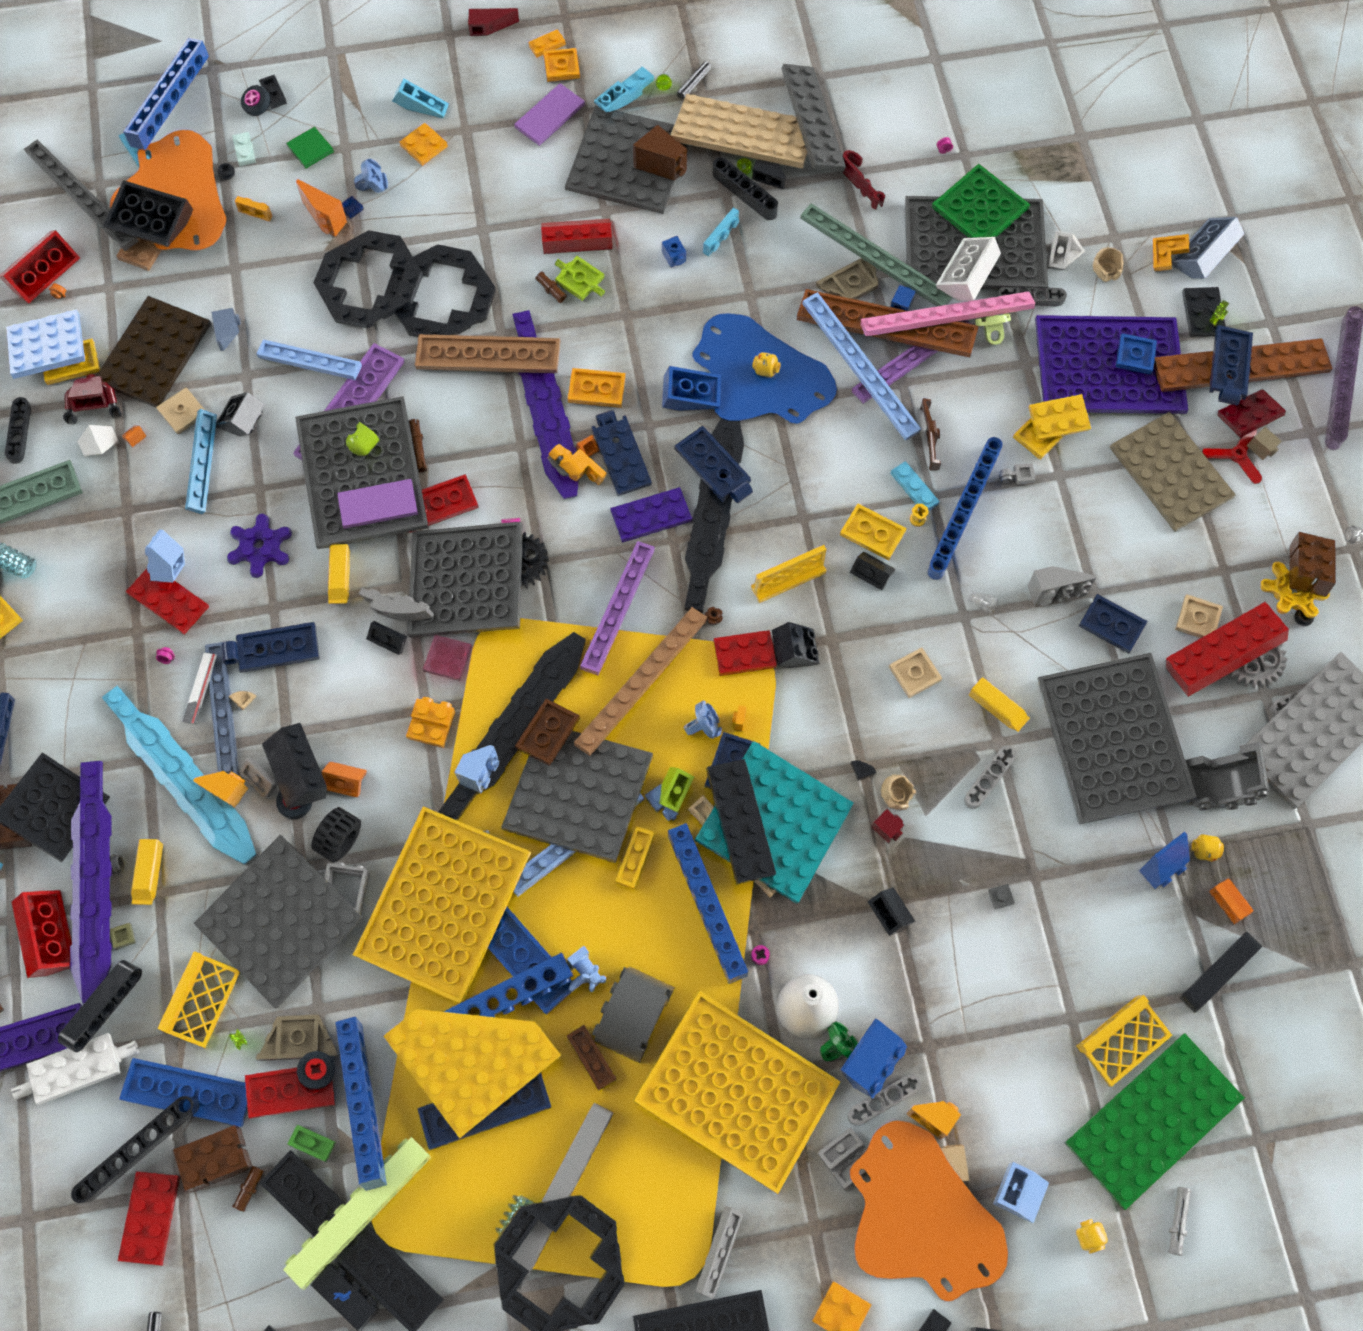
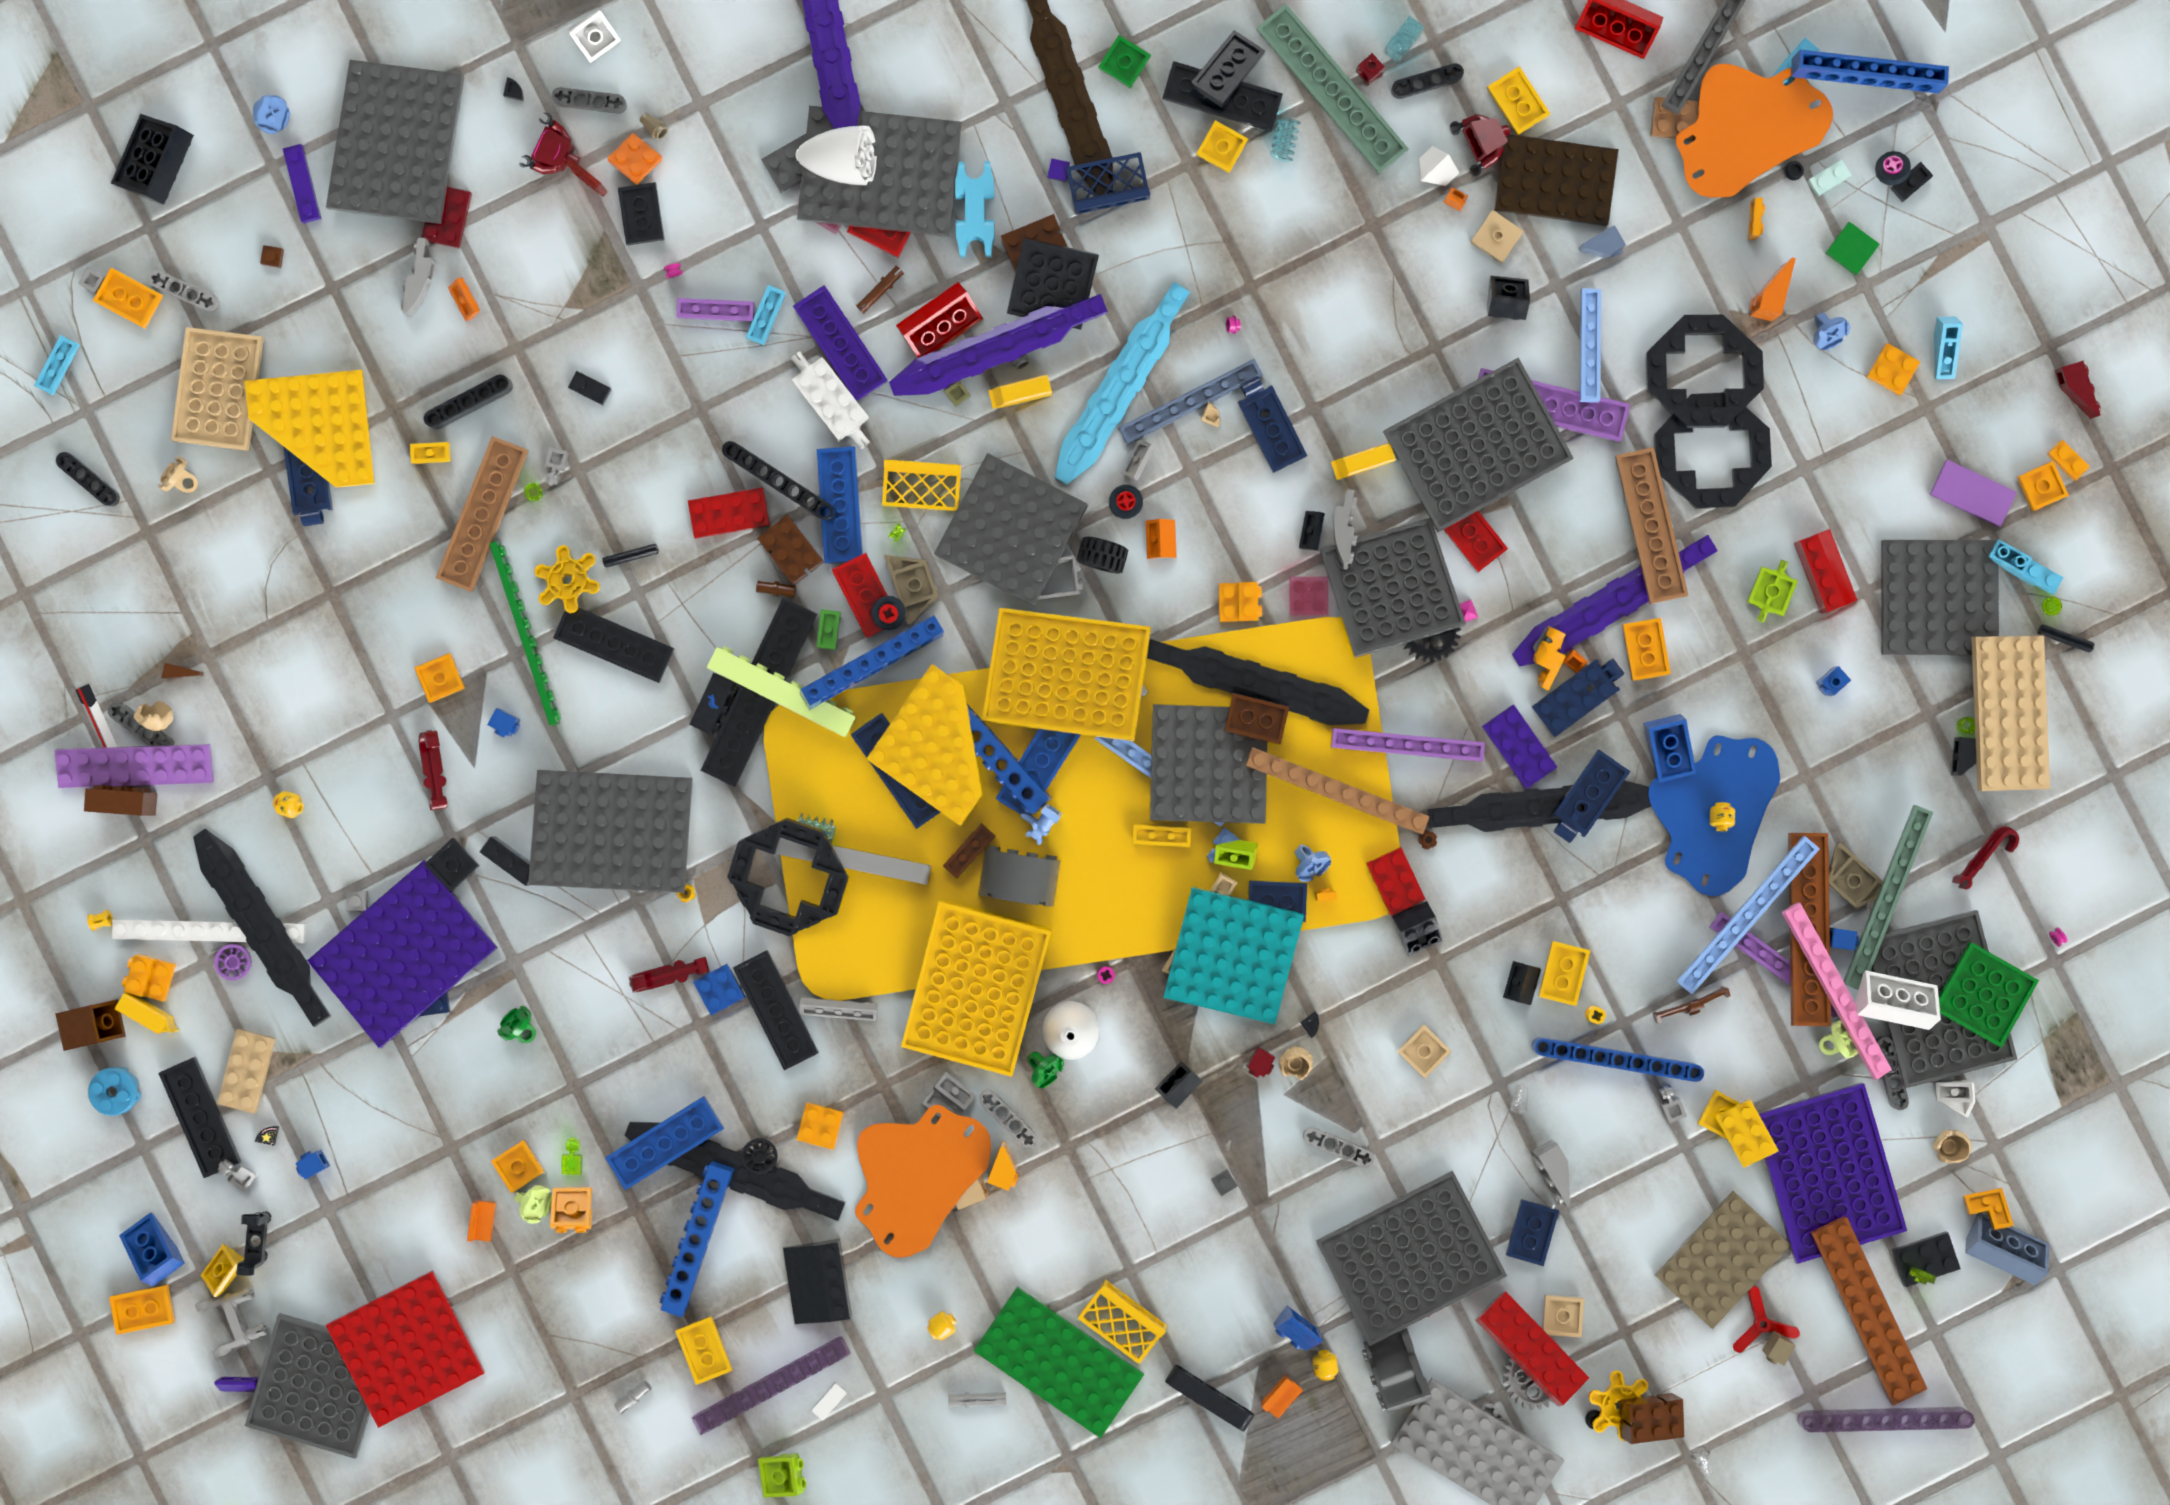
camera: 80 degrees right, 20 degrees up
(45, 344) = (1529, 69): light blue plate -> none
(57, 291) = (1595, 53): orange plate -> none
(99, 1006) = (889, 401): black beam -> none
(148, 214) = (1706, 115): black slope -> none
(164, 558) = (1328, 288): light blue slope -> none
(168, 601) = (1291, 303): red plate -> none
(199, 688) = (1210, 370): sticker -> none
(201, 461) = (1445, 279): dark azure plate -> none
(224, 786) = (1116, 435): light orange slope -> none
(259, 556) = (1372, 383): dark purple plate -> none
(294, 766) = (1156, 491): black slope -> none
(352, 207) = (1790, 320): clear blue tile -> none
(362, 440) = (1506, 438): lime helmet -> none
(377, 503) = (1445, 475): medium lavender tile -> none
(417, 438) = (1531, 487): reddish brown pin -> none
(477, 767) = (1200, 664): light blue slope -> none
(551, 287) = (1752, 564): reddish brown pin -> none
(660, 154) = (1945, 634): reddish brown slope -> none
(707, 904) = (1137, 914): blue brick -> none
(721, 232) = (1873, 725): medium azure plate -> none
(740, 821) = (1220, 925): black plate -> none
(745, 188) = (1944, 729): black beam -> none
(789, 574) = (1489, 903): yellow fence -> none
(813, 118) = (2049, 784): dark grey plate -> none
(873, 1059) = (1038, 1102): blue slope -> none
(914, 486) = (1627, 1002): medium azure plate -> none
(999, 704) = (1413, 1139): yellow piece -> none
(1021, 1192) = (961, 1257): light blue slope -> none
(1136, 353) = (1845, 1197): blue plate -> none
(1231, 358) = (1865, 1298): dark blue hinge -> none
(1251, 413) = (1813, 1329): dark red plate -> none

